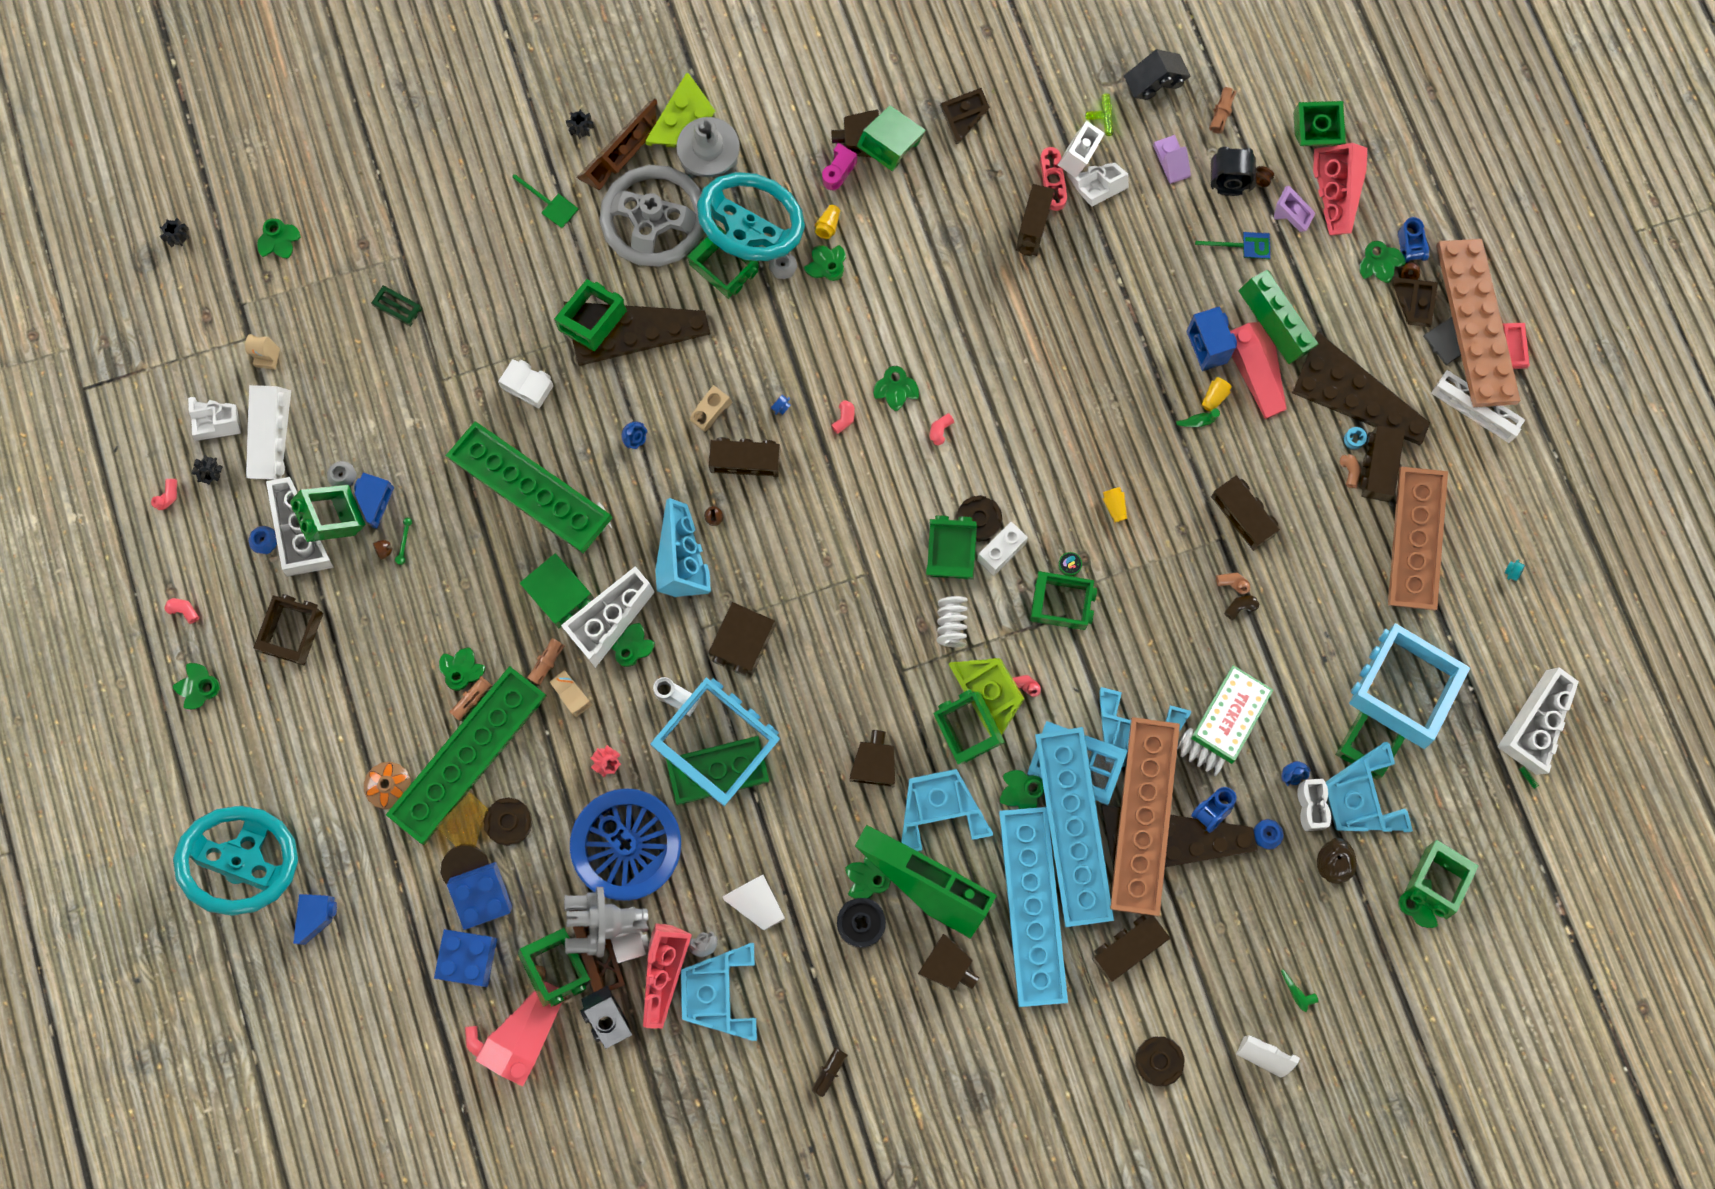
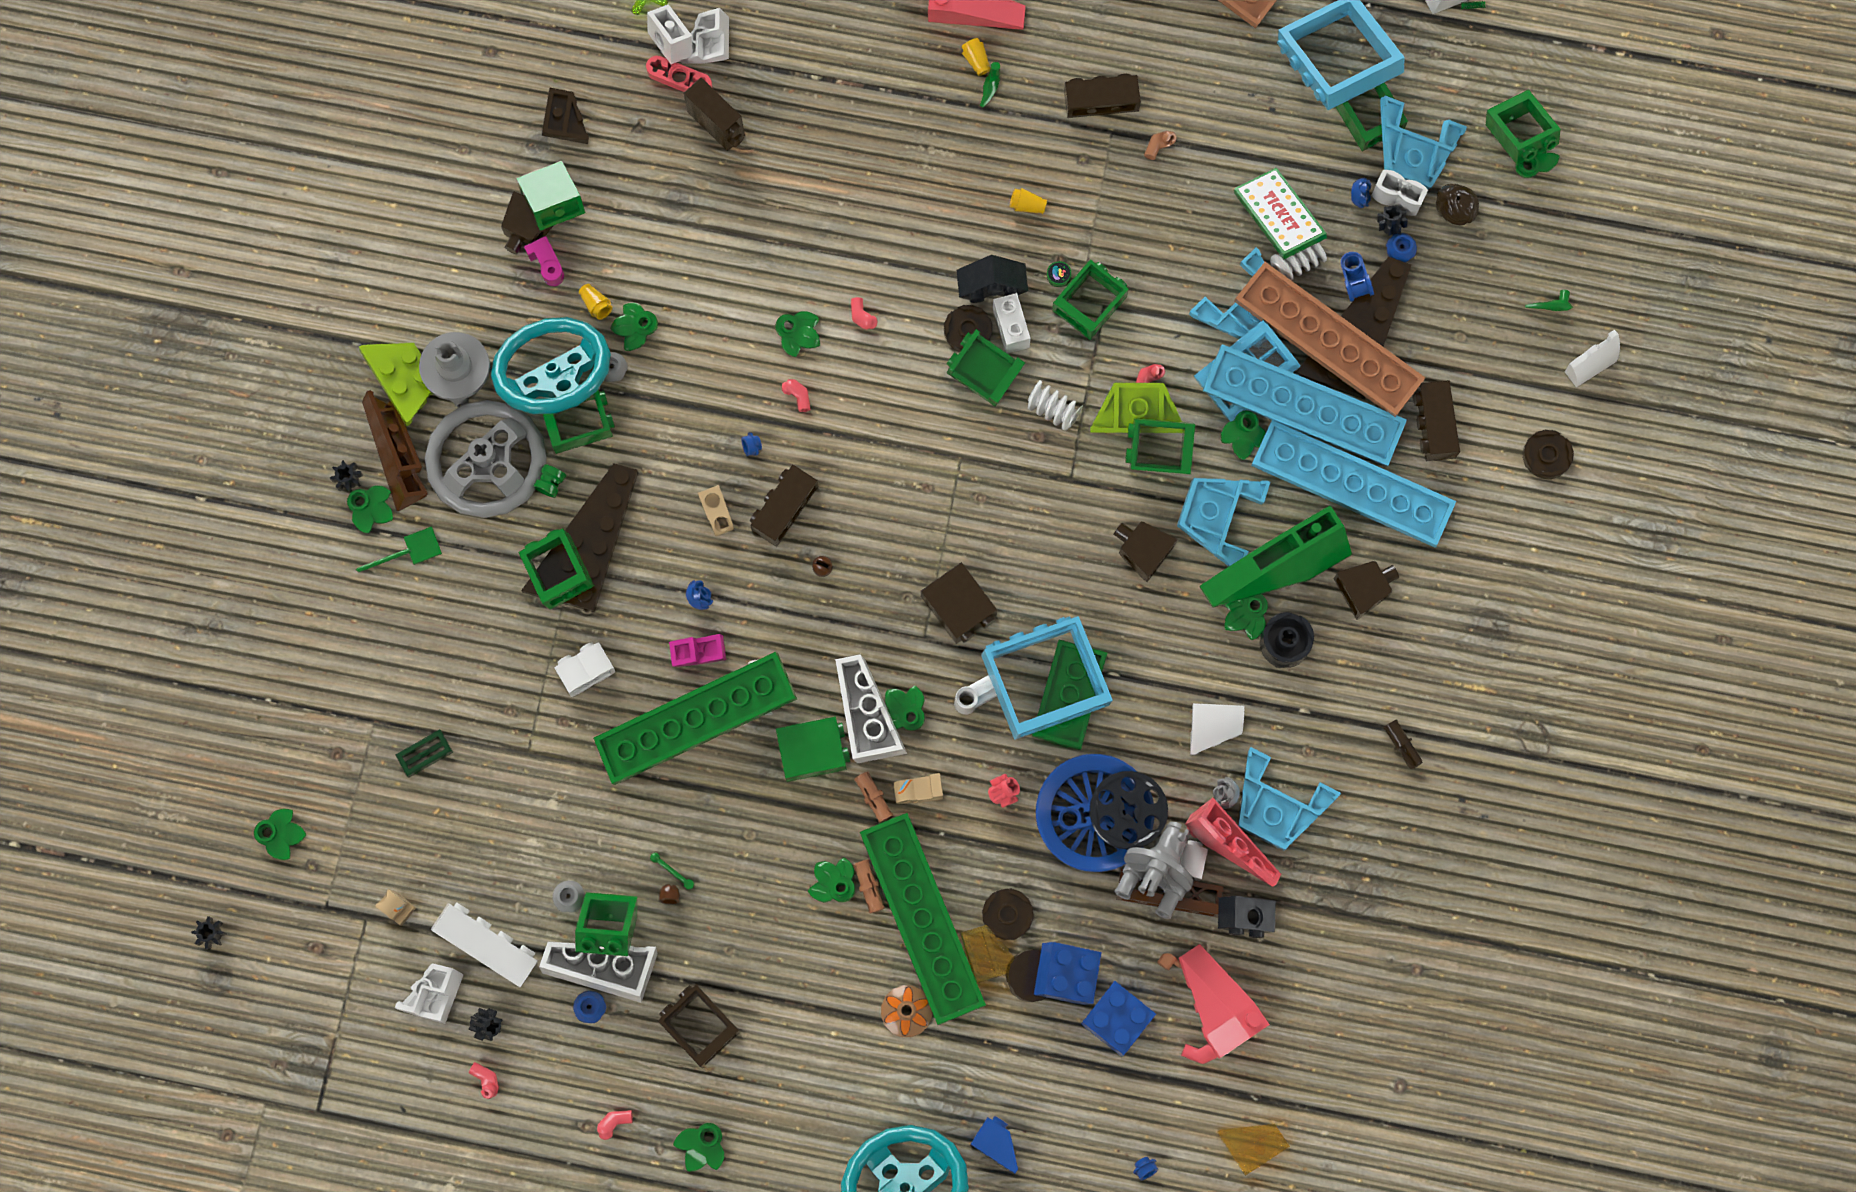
camera: 60 degrees left, 0 degrees up
(356, 1048) = (1145, 1168): none -> blue plate
(373, 496) = (610, 876): blue slope -> none
(421, 1128) = (1253, 1145): none -> clear yellow wing
(540, 946) = (1163, 960): green window -> none
(567, 158) = (373, 510): none -> green plate
(590, 459) = (697, 650): none -> dark pink slope
(634, 858) = (1133, 798): none -> black wedge
(667, 271) = (549, 481): none -> green wheel
(679, 558) = (850, 621): medium azure wedge -> none
(1030, 512) = (991, 277): none -> black brick
(1211, 338) = (924, 28): blue brick -> none
(1244, 602) = (1182, 147): dark brown arm -> none
(1286, 812) = (1392, 220): none -> black gear

